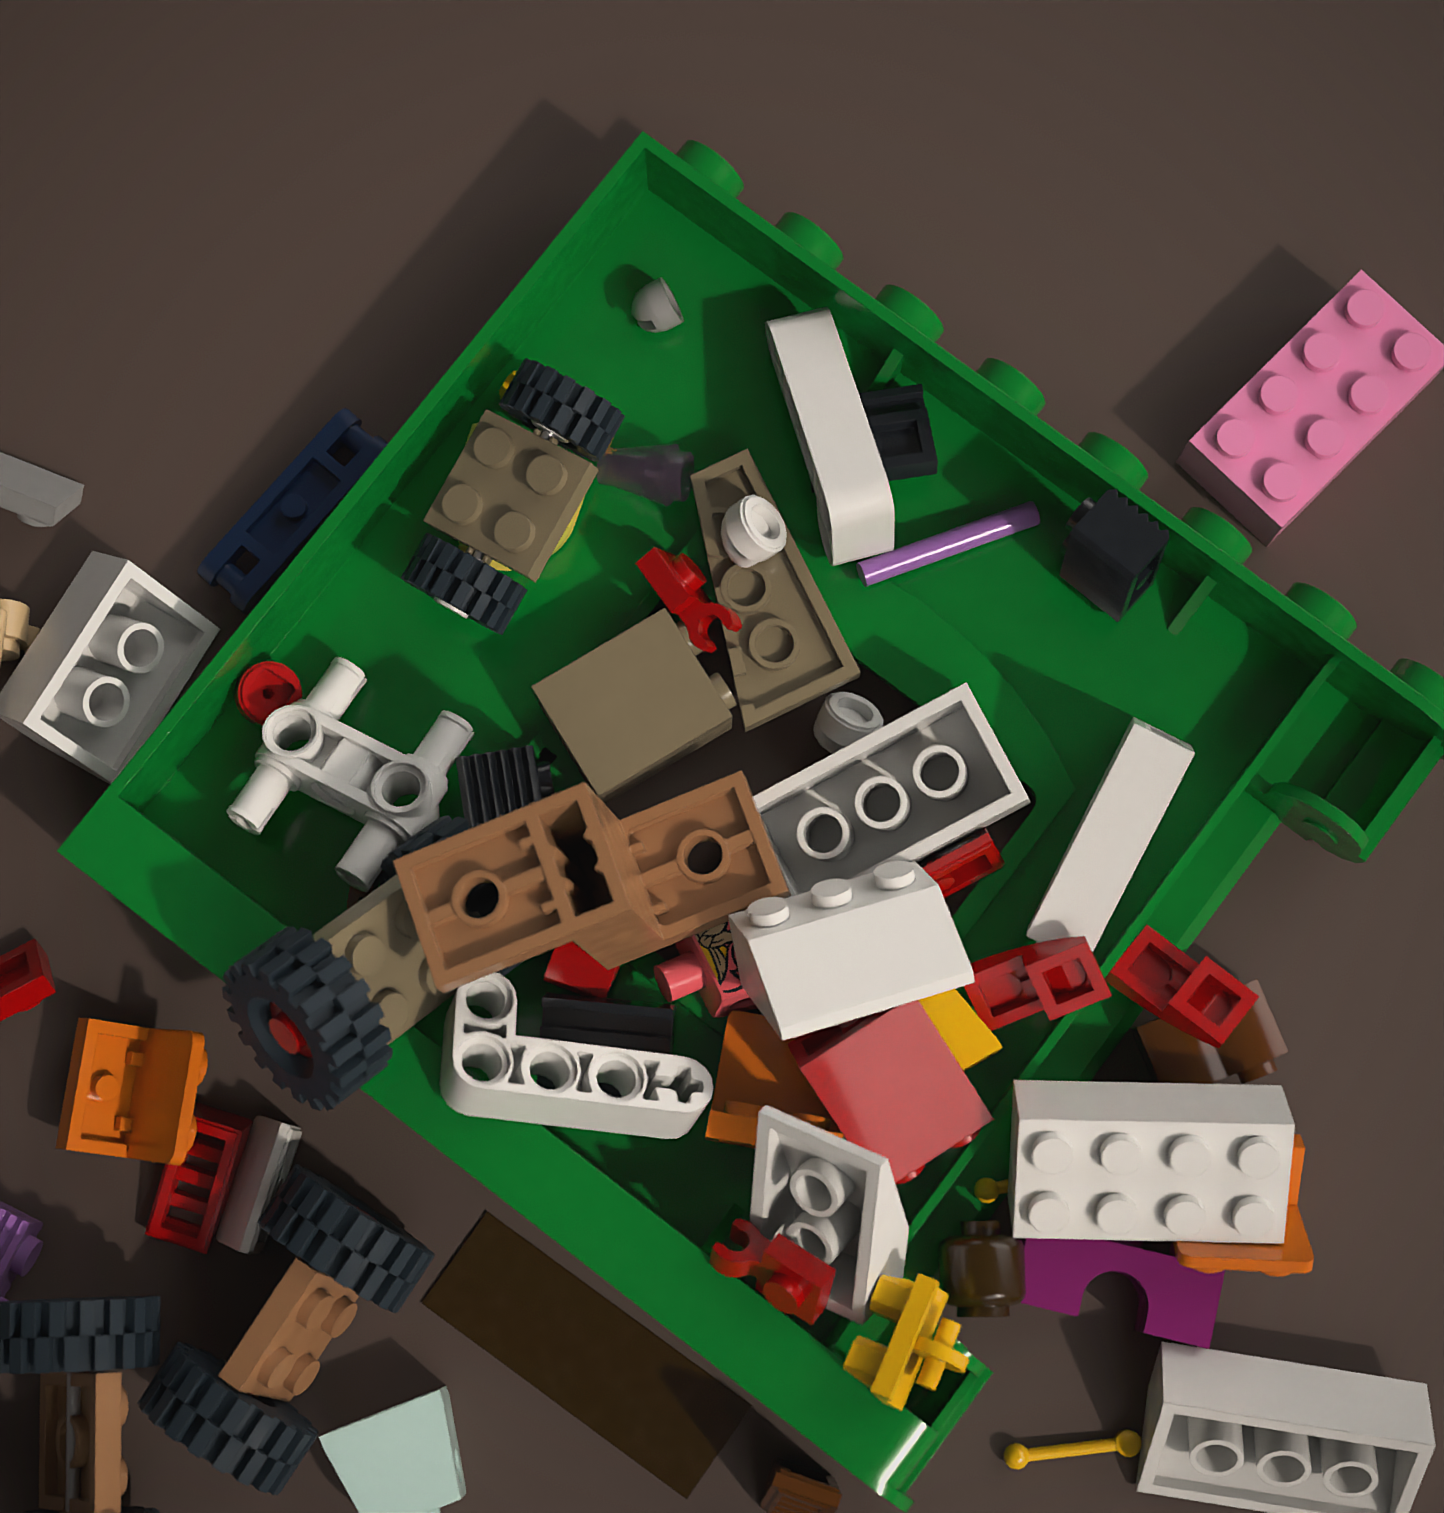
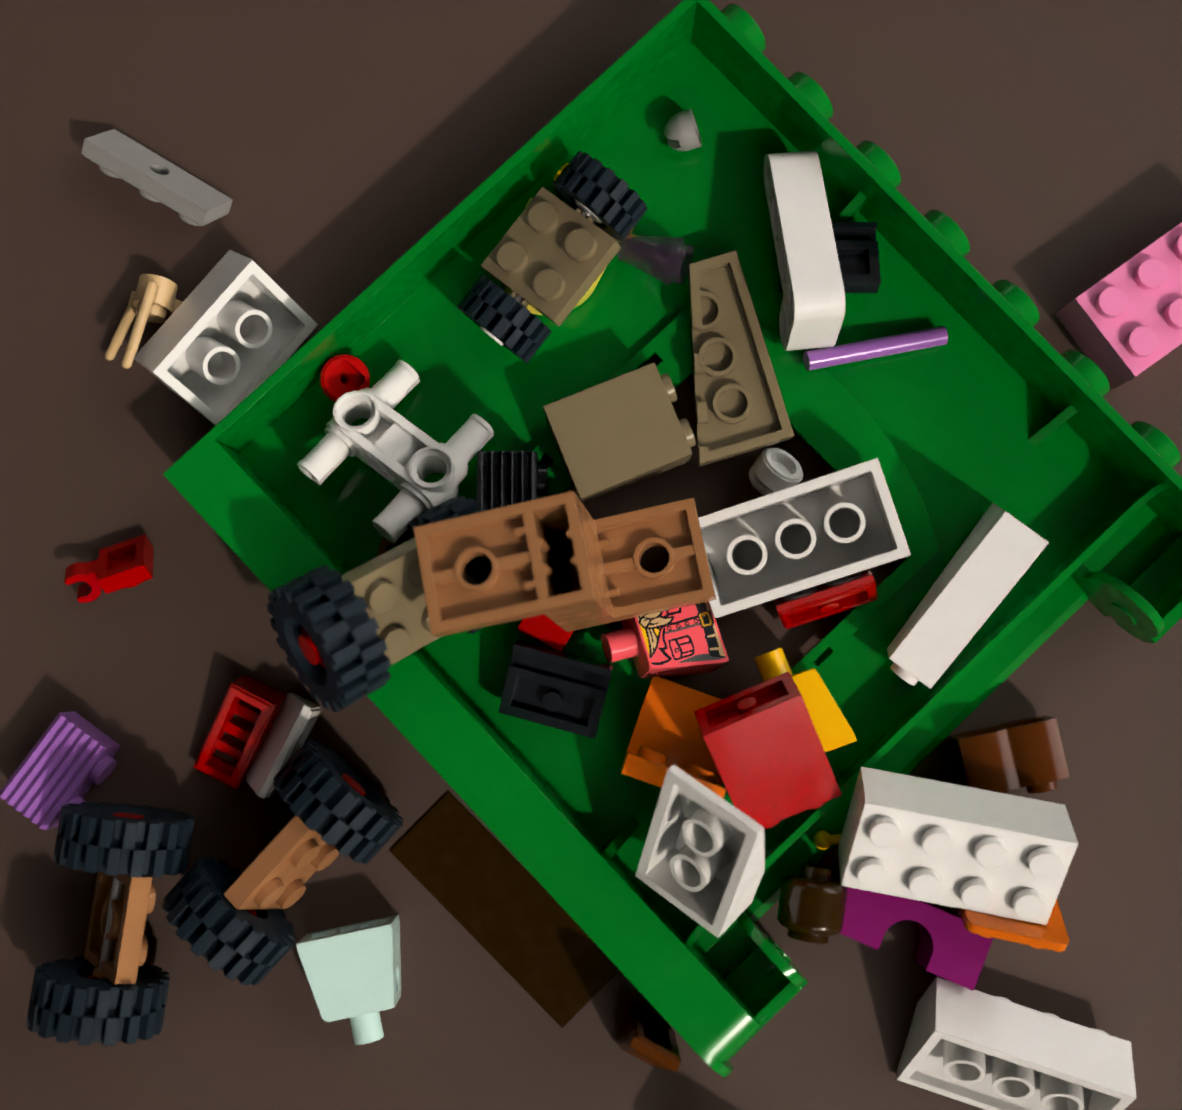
camera: 10 degrees right, 5 degrees up
(132, 1091) = (197, 662): orange bracket -> none
(290, 511) = (382, 242): dark blue plate -> none
(658, 1090) = (528, 707): white beam -> none
(679, 587) = (667, 348): red plate -> none
(752, 531) = (730, 314): white tile -> none
(784, 1271) = (664, 888): red plate -> none
(848, 949) = (755, 650): white slope -> none
(893, 1368) = (736, 978): yellow hips -> none
(1034, 978) = (881, 691): red slope -> none
(1112, 553) = (1004, 374): black brick -> none
(1125, 1443) = (893, 1041): yellow hinge -> none
(1180, 991) = (1003, 723): red slope -> none

